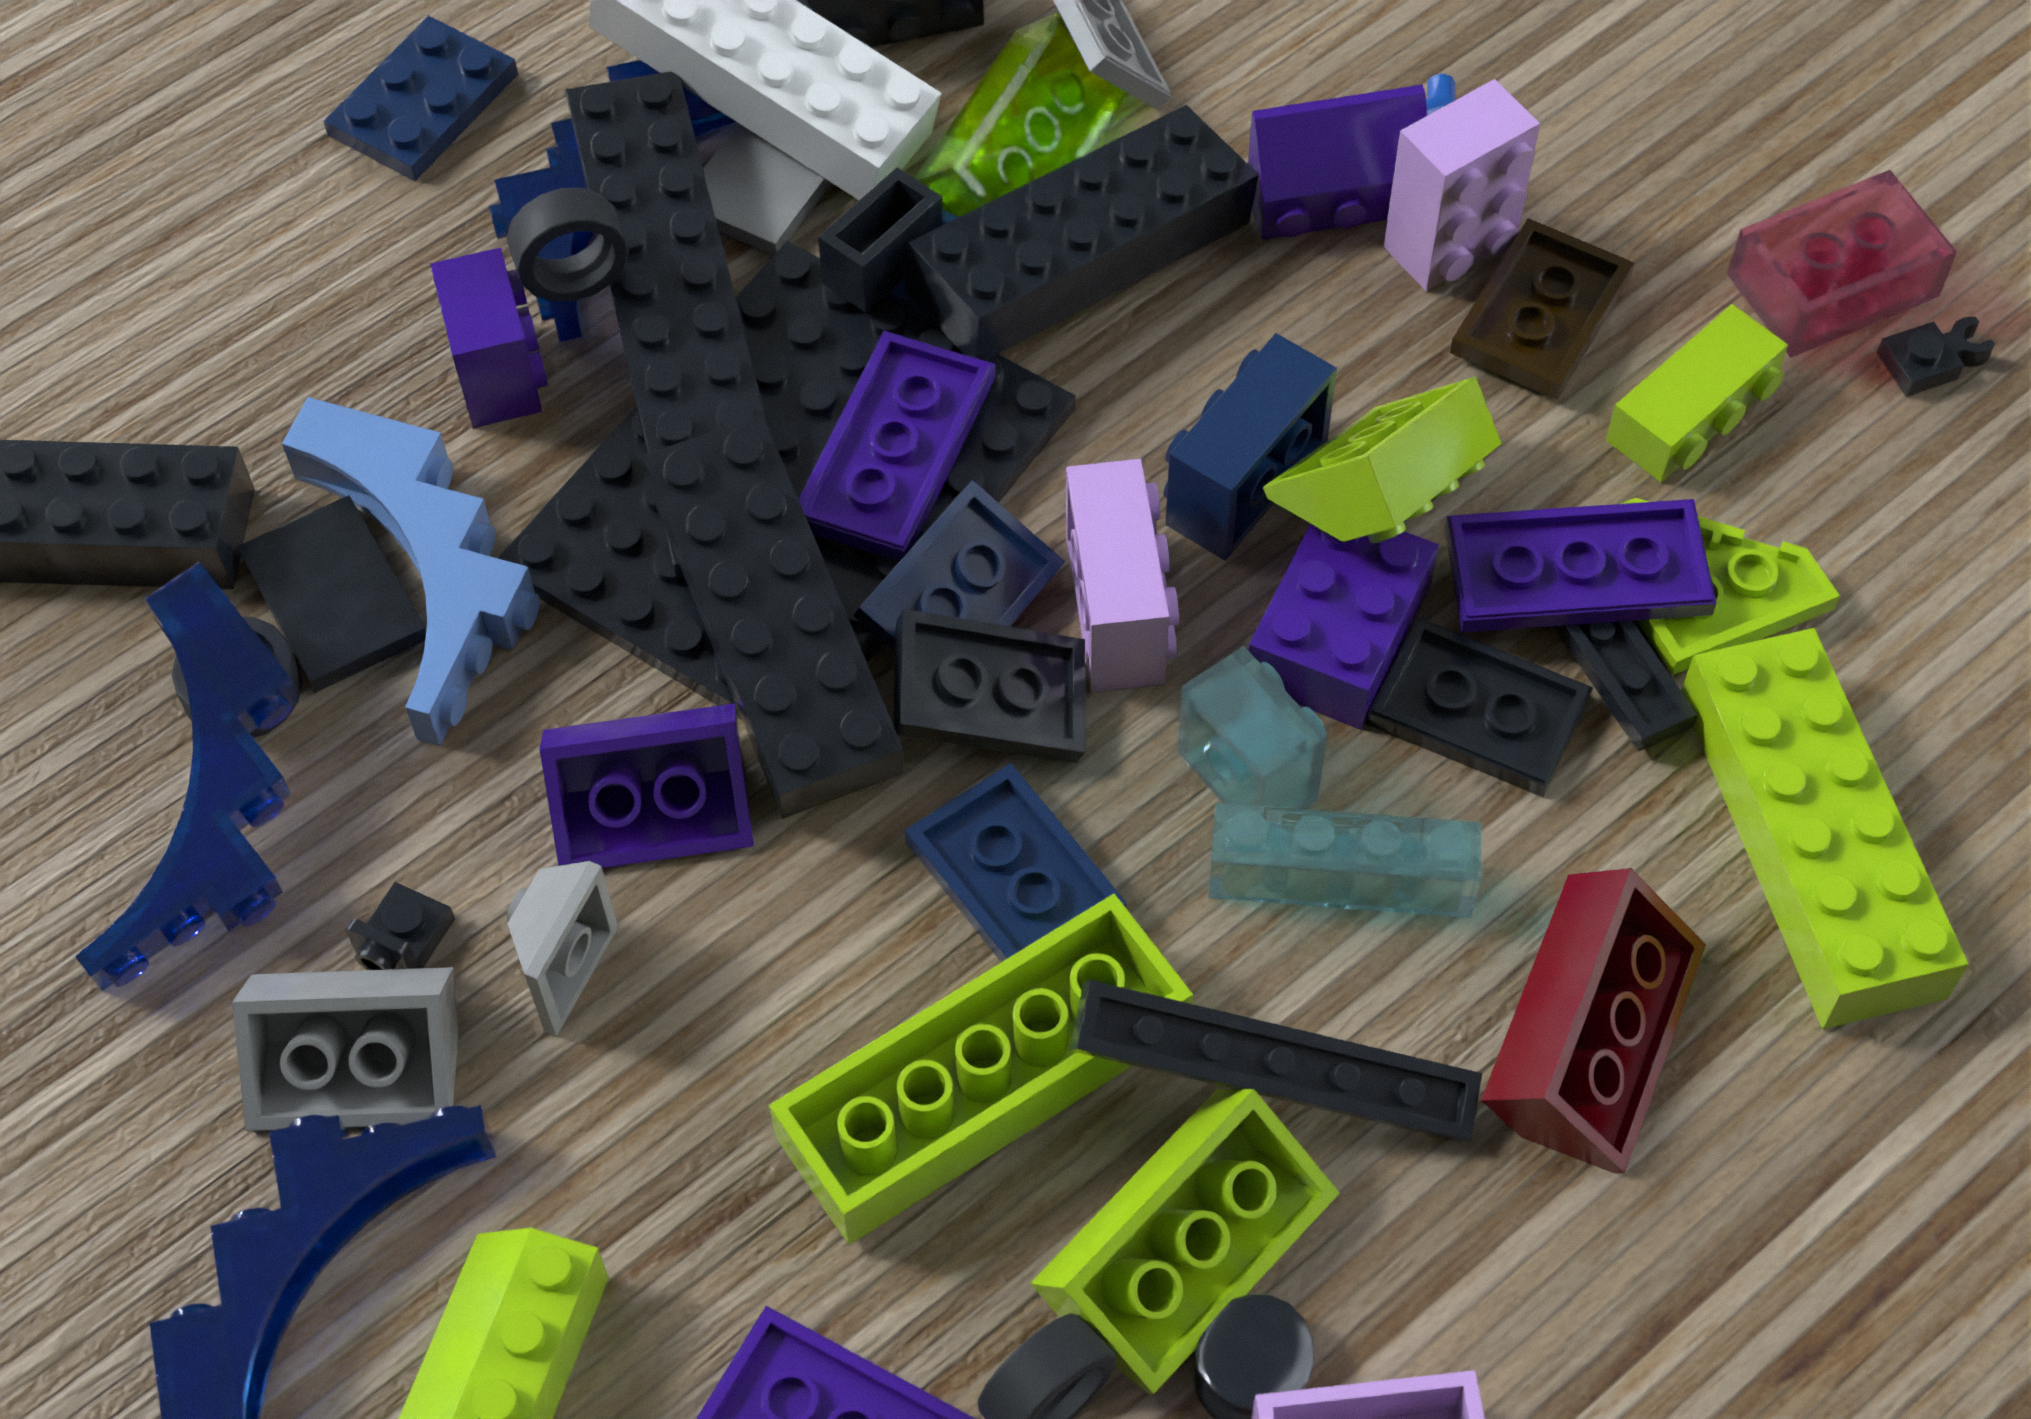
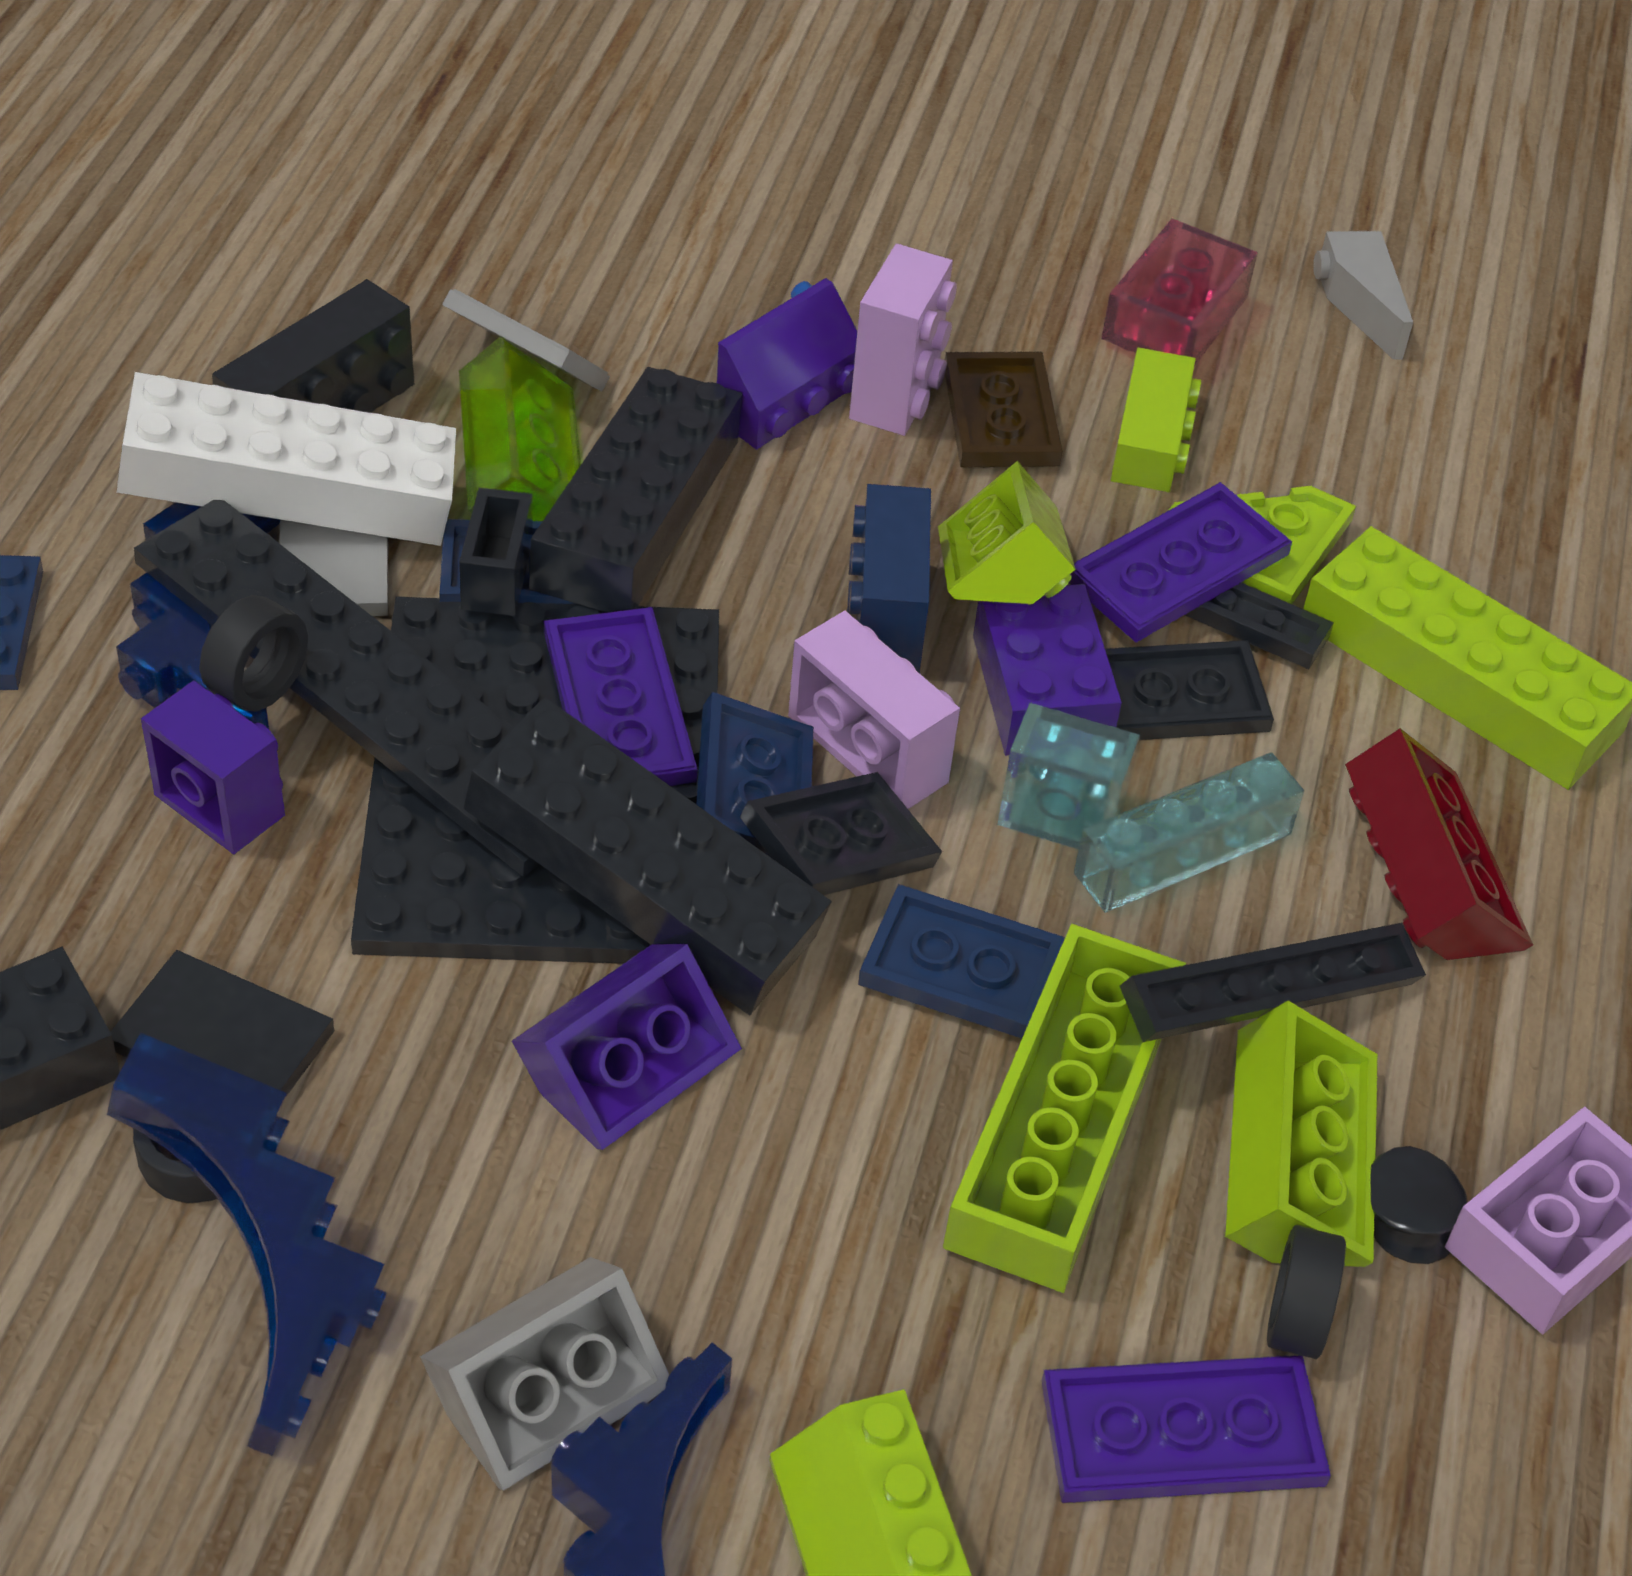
camera: 40 degrees left, 10 degrees down
(400, 931) = (509, 1260): black bracket -> none
(403, 483) = (286, 939): medium blue arch -> none
(561, 935) = (657, 1186): light grey slope -> none
(1929, 358) = (1275, 337): black plate -> none

